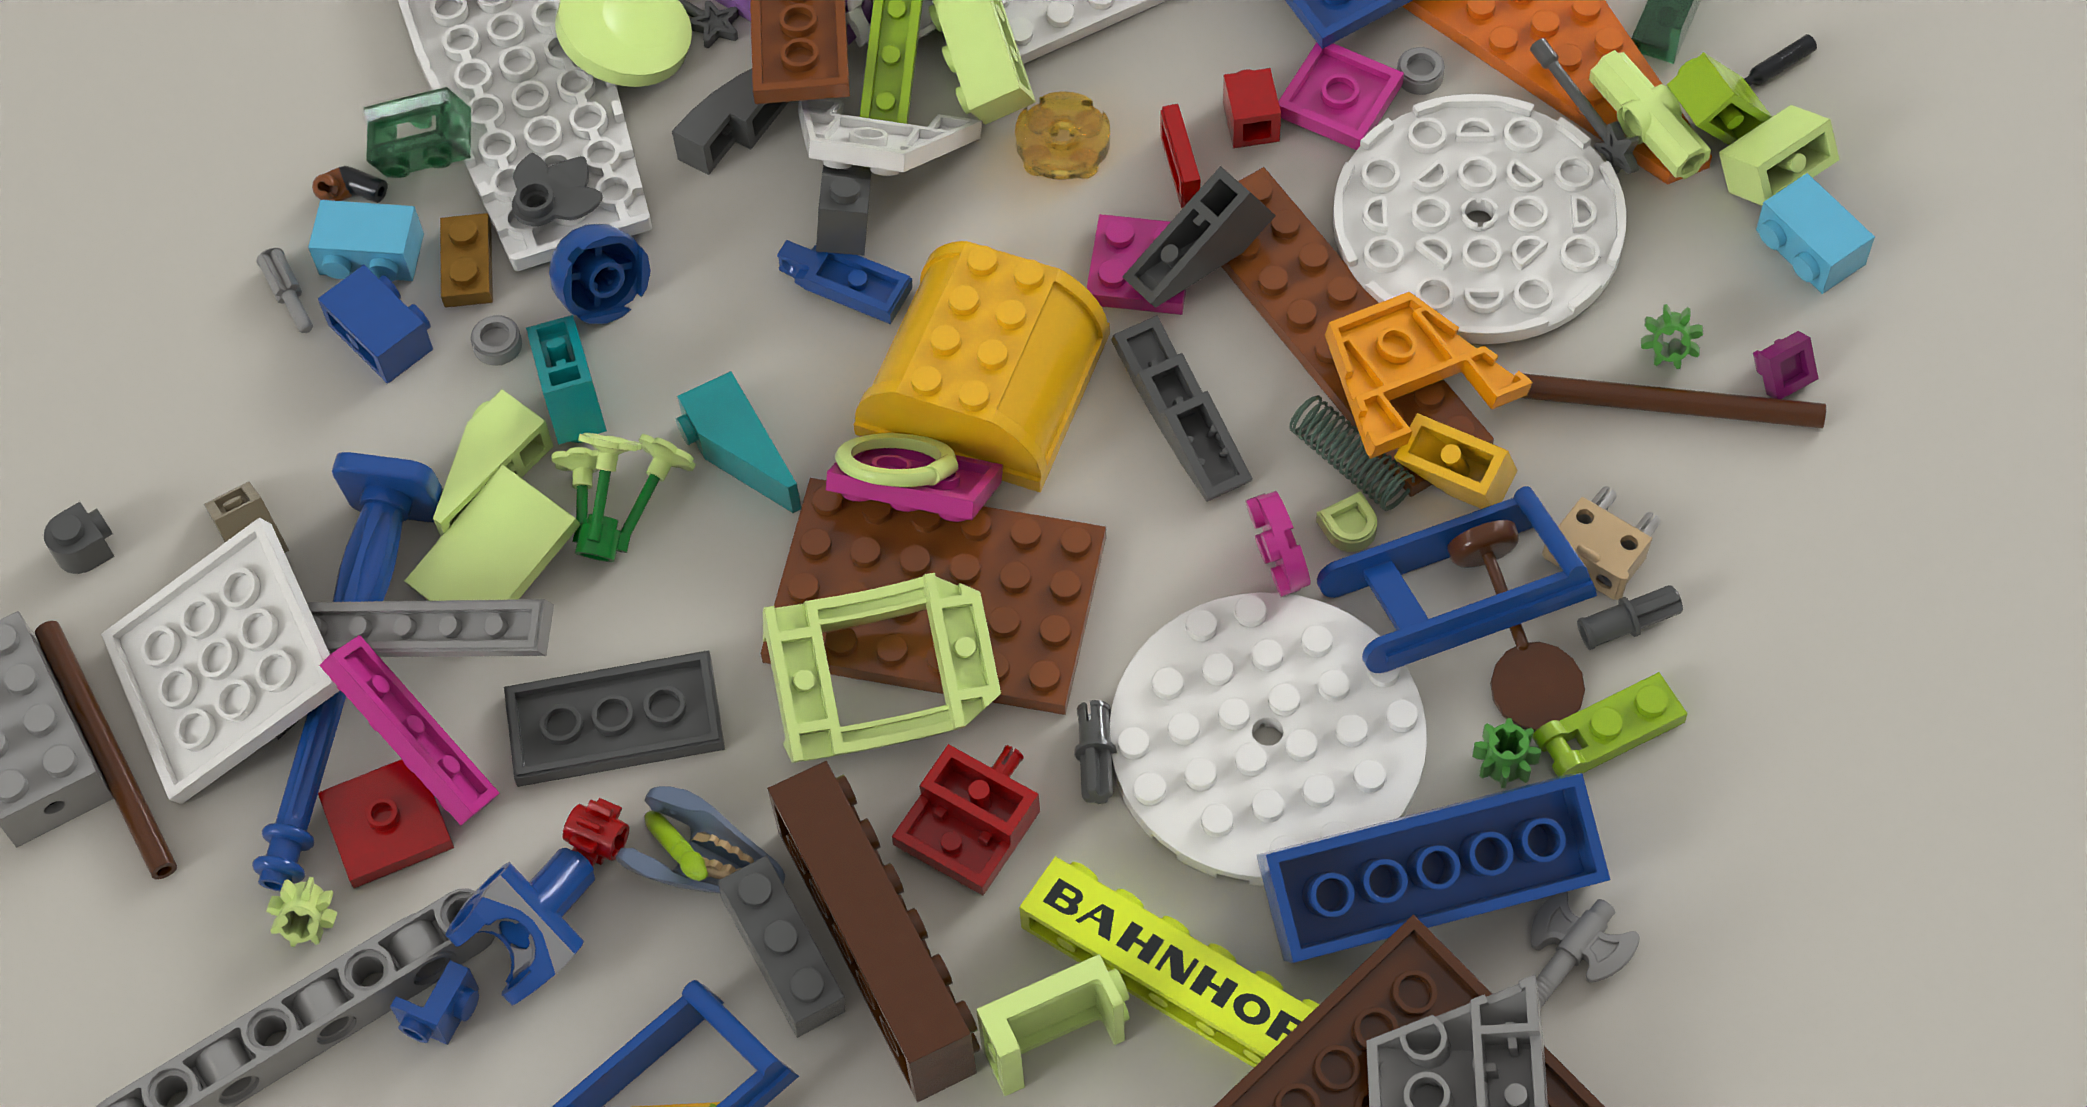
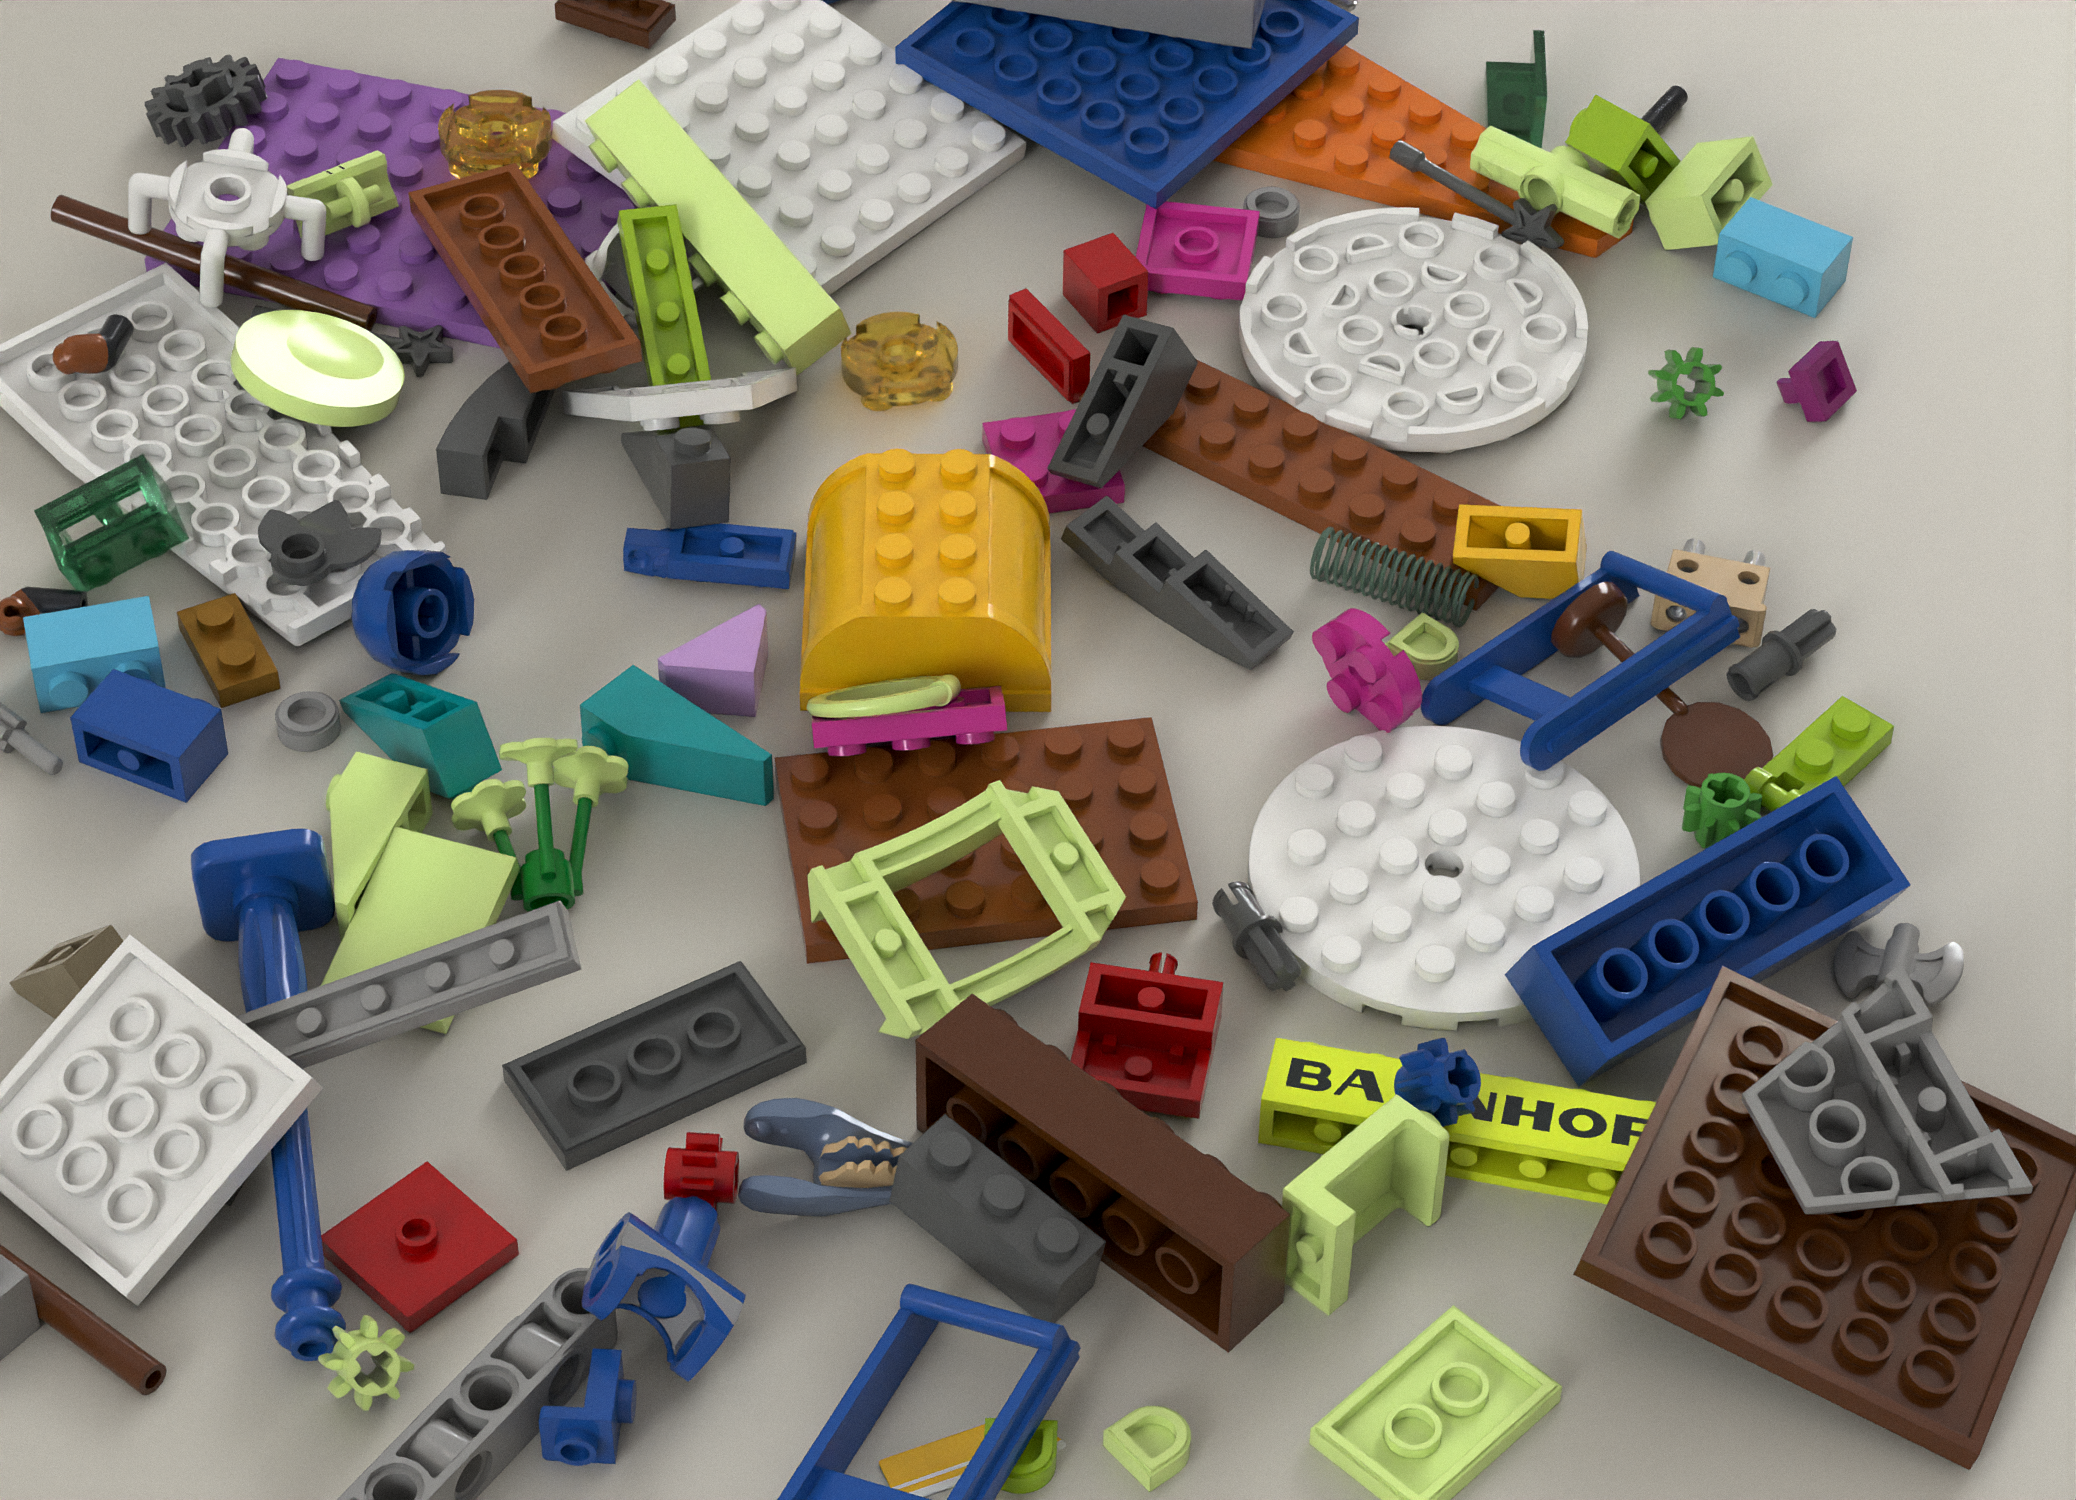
camera: 25 degrees left, 15 degrees down
(409, 729) = (399, 1106): dark pink plate -> none
(691, 862) = (840, 1165): lime piece -> none
(806, 385) = (722, 666): none -> lavender slope
(1143, 948) = (1438, 1081): none -> blue gear
(1402, 349) = (1405, 456): light orange wing -> none
(1677, 401) = (1712, 447): reddish brown piece -> none

